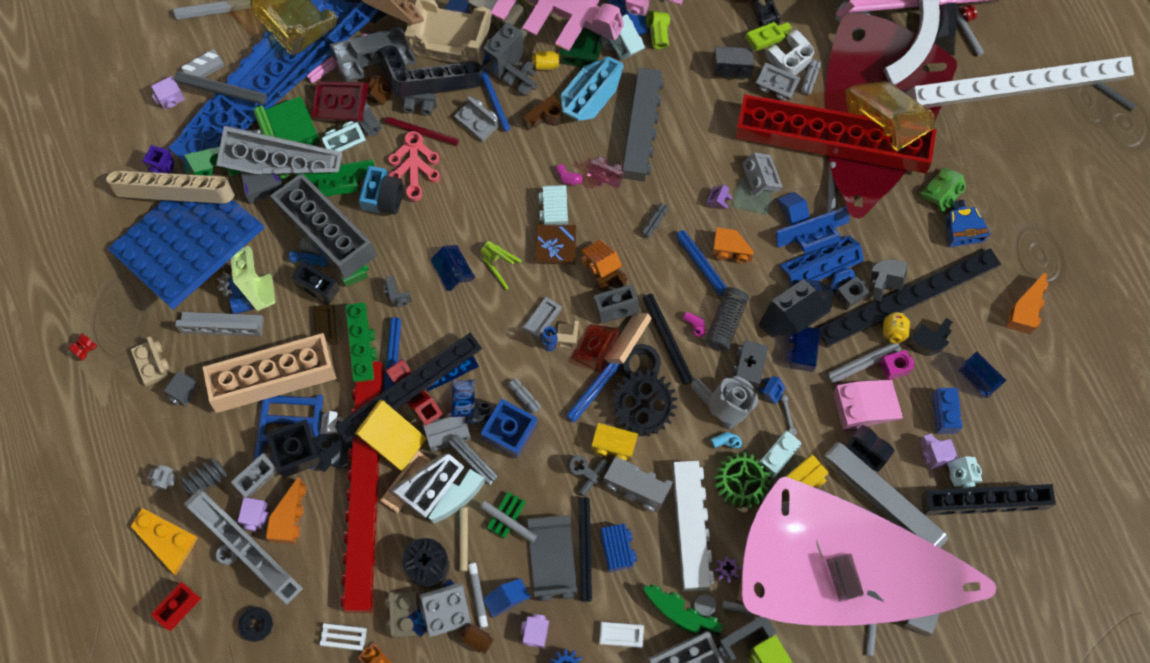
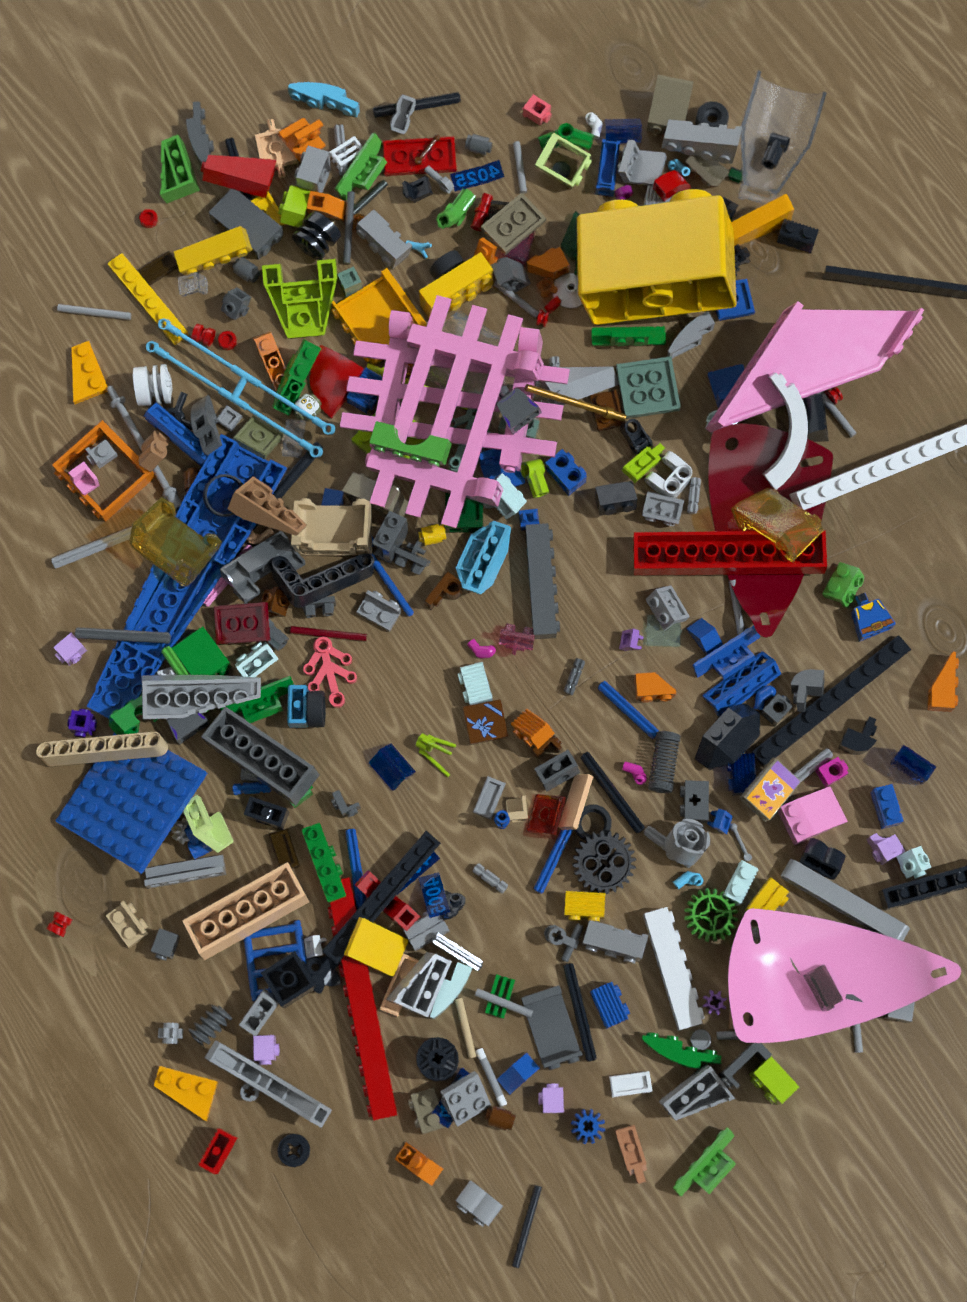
camera: 10 degrees left, 5 degrees up
(204, 65) = (96, 612): light grey tile -> none
(284, 520) = (296, 1045): orange slope -> none
(325, 635) = (377, 1135): white tile -> none
(371, 28) = (255, 538): none -> light nougat arm
(509, 428) = (484, 914): blue brick -> none
(643, 62) = (528, 517): none -> blue tile
(685, 31) = (561, 474): none -> blue brick
(829, 366) = (770, 789): none -> piece
(896, 328) = (824, 735): yellow head -> none

